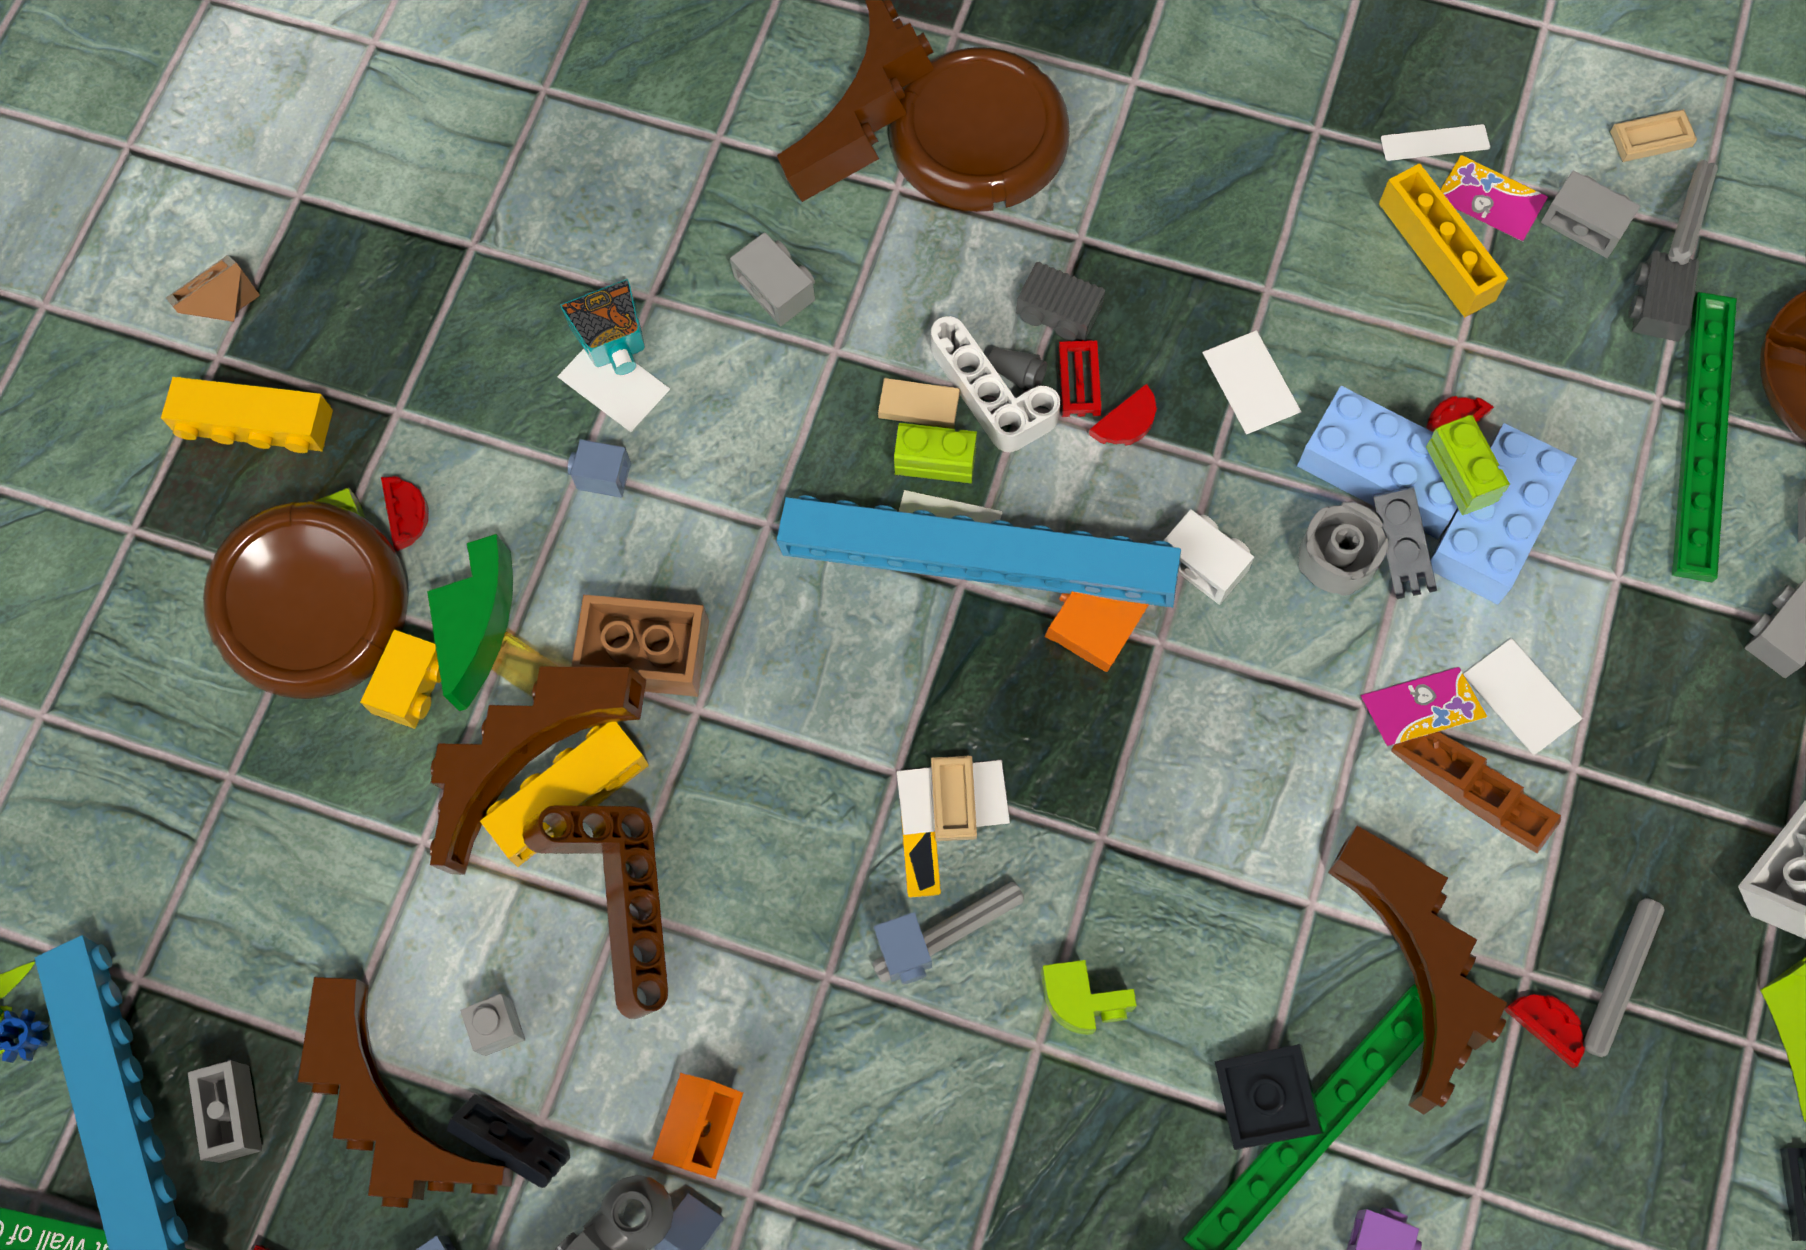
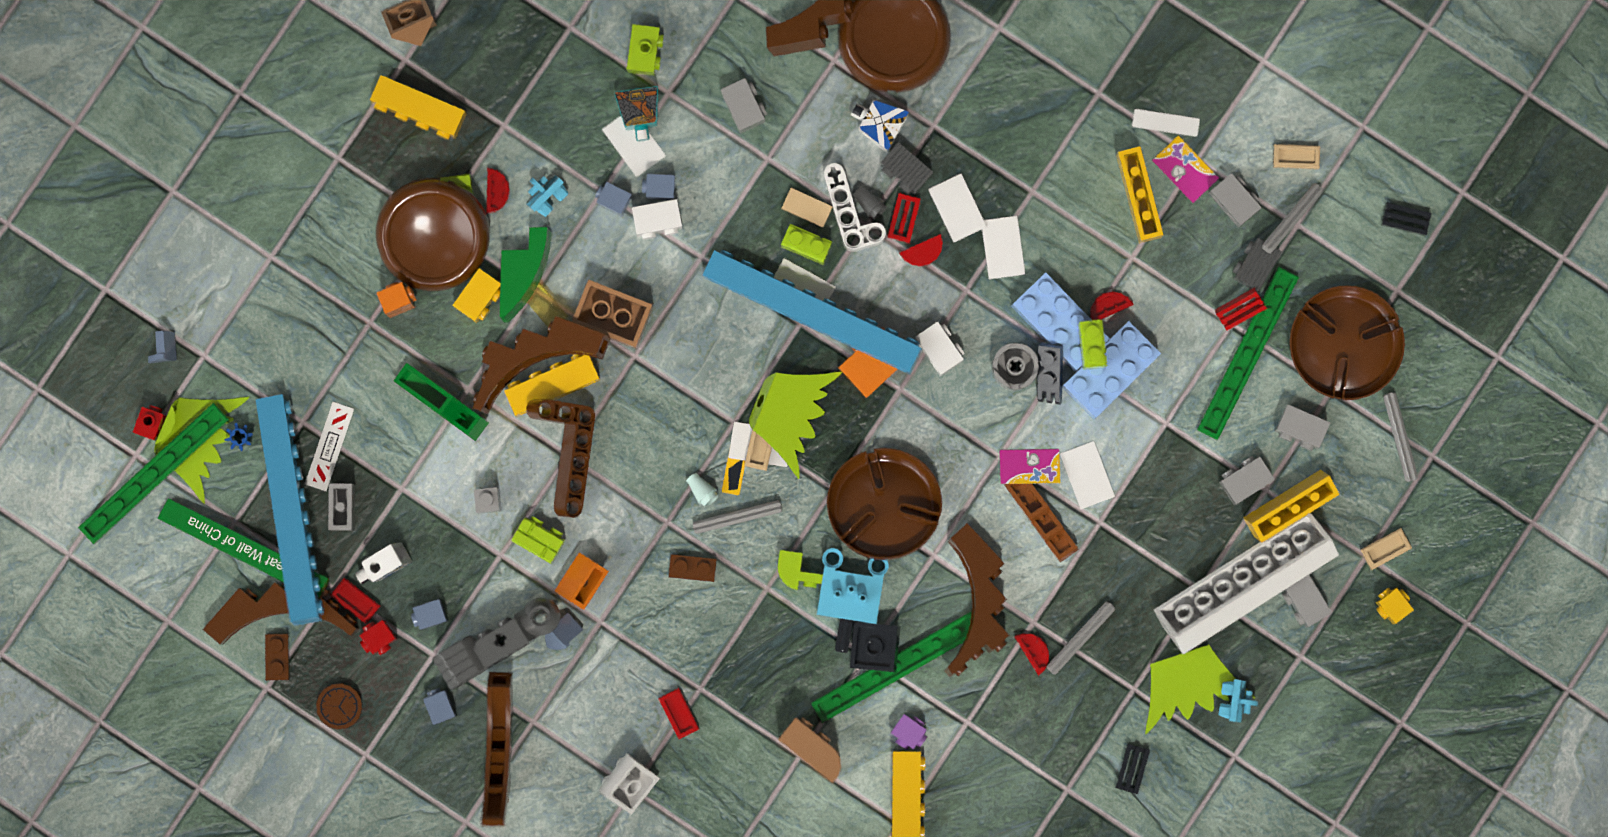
camera: 15 degrees right, 15 degrees up
(192, 1007) = (329, 446): none -> white sticker
(260, 718) = (396, 299): none -> orange brick
(321, 1195) = (390, 560): none -> white torso
(341, 1057) = (404, 494): reddish brown arch -> none
(375, 873) = (441, 401): none -> green slope
(478, 506) = (553, 187): none -> medium azure hips
(508, 1141) = (482, 561): black hinge -> none
(595, 241) = (644, 50): none -> lime brick
(601, 1071) = (538, 539): none -> lime brick
(670, 431) = (659, 187): none -> sand blue brick
(679, 479) = (657, 219): none -> white brick
(873, 900) = (702, 490): none -> light aqua cone
(894, 1046) = (692, 568): none -> reddish brown plate
(903, 948) = (710, 522): sand blue brick -> none
(977, 726) = (783, 412): none -> lime piece
(997, 248) = (880, 123): none -> torso
(1159, 343) = (957, 208): none -> white sticker
(1193, 1015) = (849, 597): none -> medium azure piece
(1203, 834) = (884, 504): none -> reddish brown piece
(1674, 369) = (1242, 312): none -> red tile

